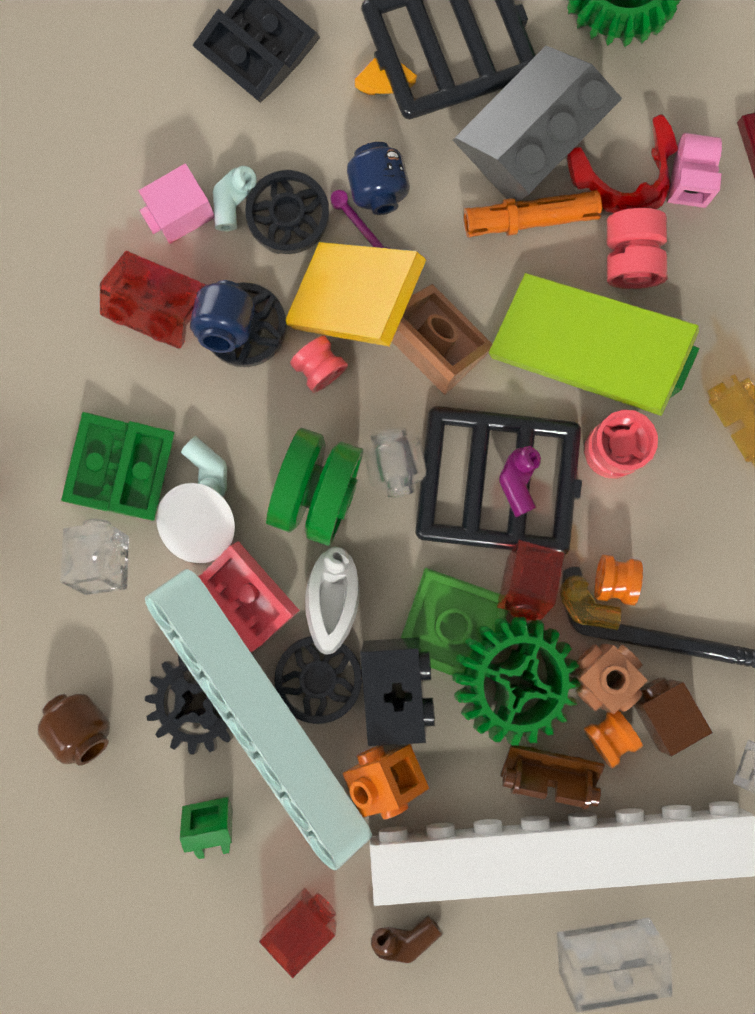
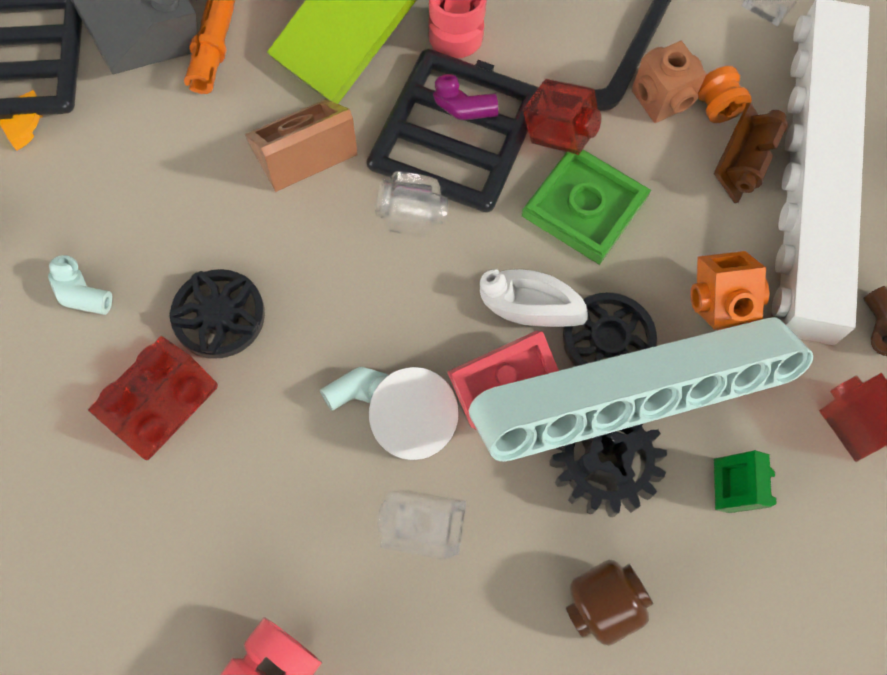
camera: 75 degrees left, 15 degrees down
(117, 466) = (324, 484): green slope -> none
(175, 204) = (60, 340): bright pink brick -> none
(222, 316) = (204, 315): dark blue head -> none
(287, 212) = (117, 241): black wheel -> none
(308, 484) = (417, 269): green wheel -> none
(318, 363) = (288, 247): coral wheel -> none
(339, 201) = (126, 192): magenta hinge -> none
(355, 292) = (230, 182): yellow tile -> none
(378, 178) = (120, 142): dark blue head -> none
(392, 718) = (642, 258): black brick -> none
(512, 697) = (654, 153): green gear -> none
(583, 607) = (605, 79): clear yellow arm -> none
(618, 580) = (579, 52): orange wheel -> none
(671, 715) = (717, 40): reddish brown brick -> none

